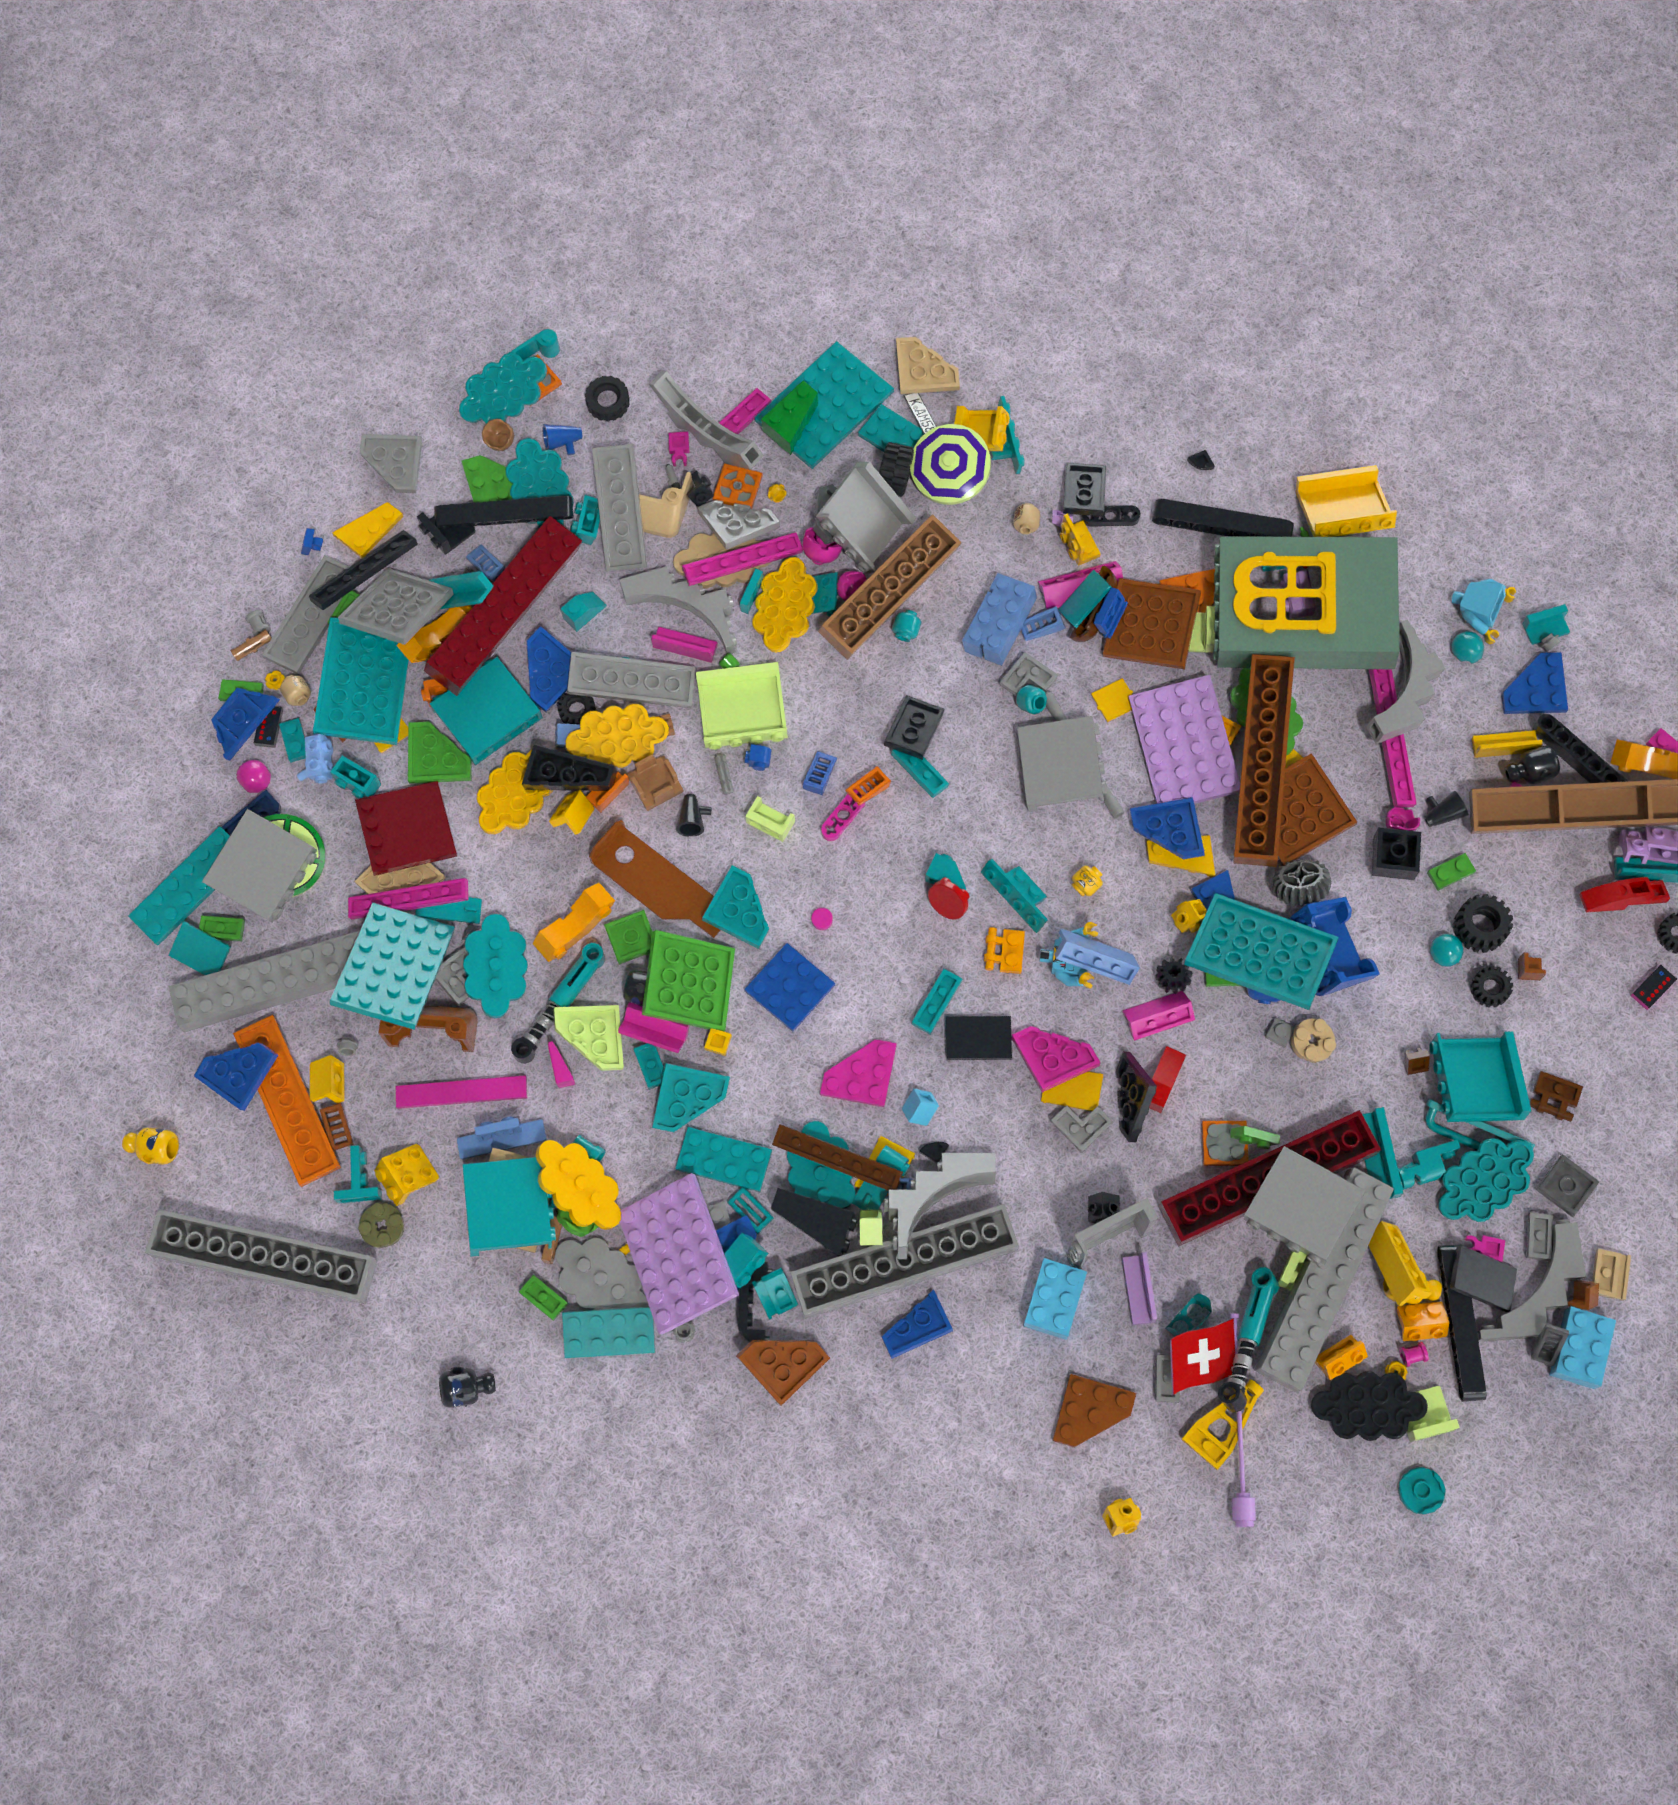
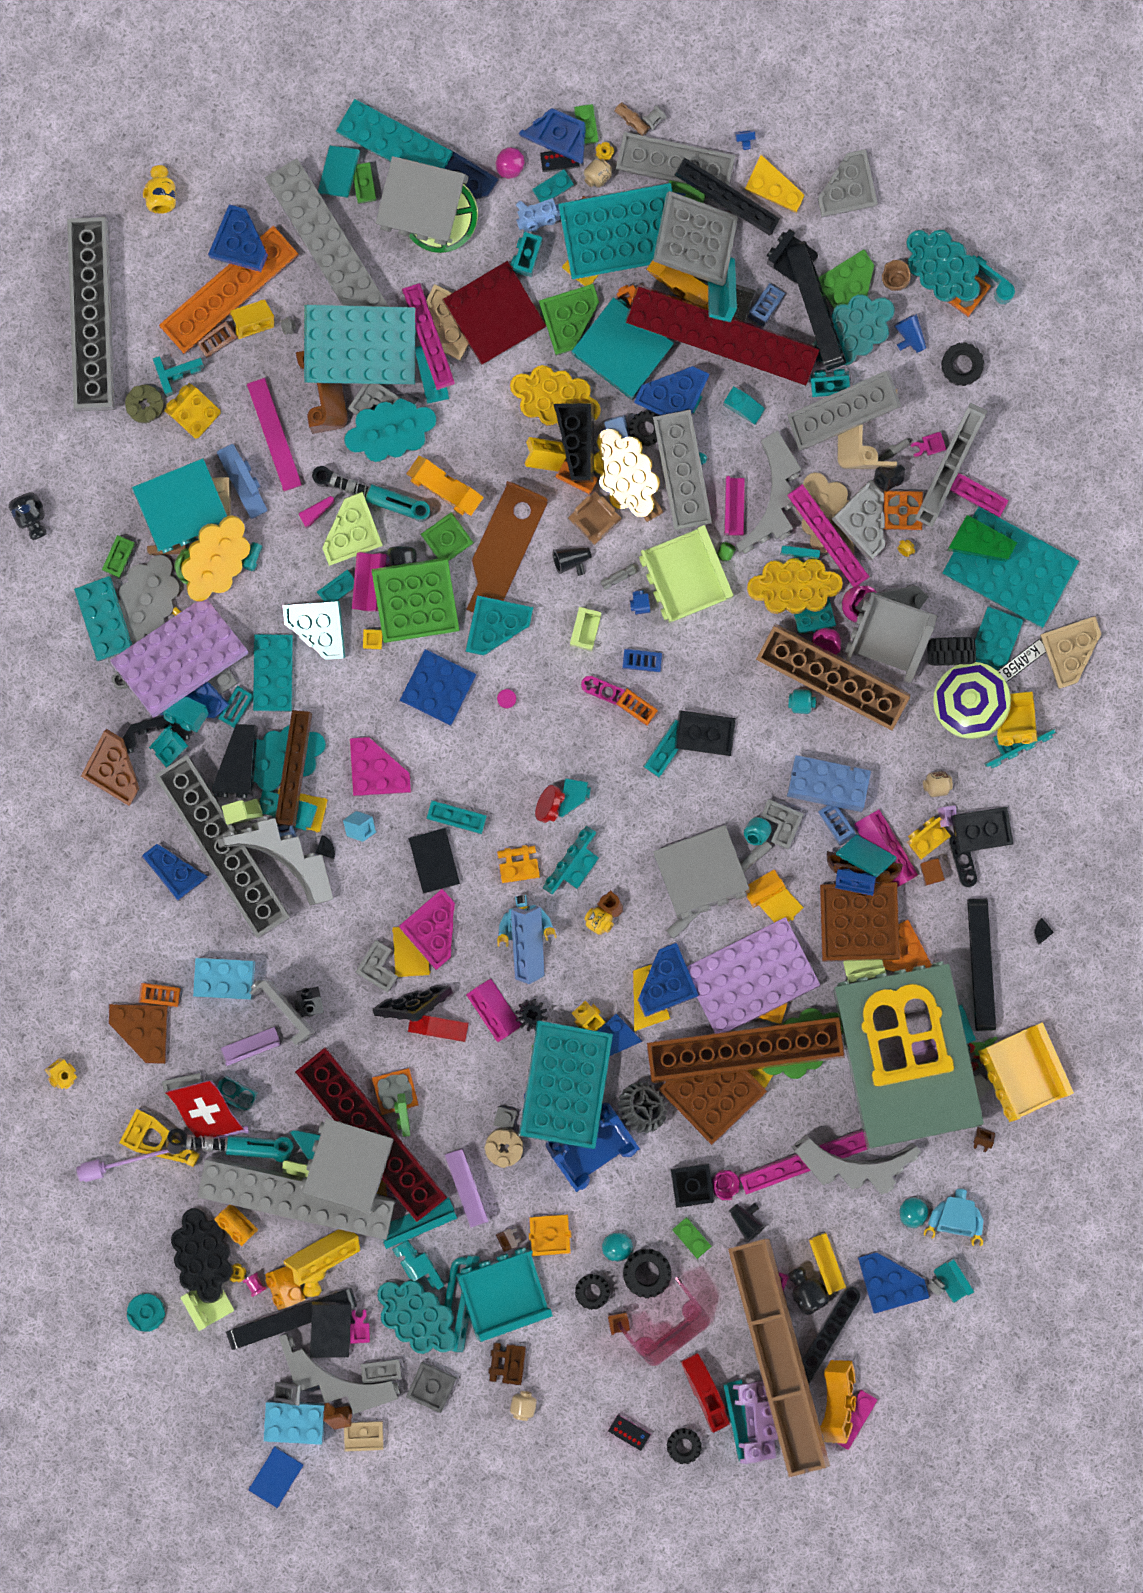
camera: 75 degrees right, 15 degrees up
(1050, 1398) = (143, 987): none -> orange slope
(1072, 863) = (611, 904): none -> dark orange plate
(1092, 705) = (764, 888): none -> light orange panel
(1117, 543) = (932, 872): none -> dark orange panel
(1264, 1251) = (306, 1141): none -> teal slope
(1349, 1090) = (466, 1187): none -> lavender panel
(1405, 560) = (984, 1138): none -> reddish brown tile
(1419, 1015) = (549, 1235): none -> light orange plate
(1556, 909) = (656, 1352): none -> clear pink windscreen
(1606, 1090) = (523, 1406): none -> tan head
(1641, 1388) = (275, 1477): none -> blue piece

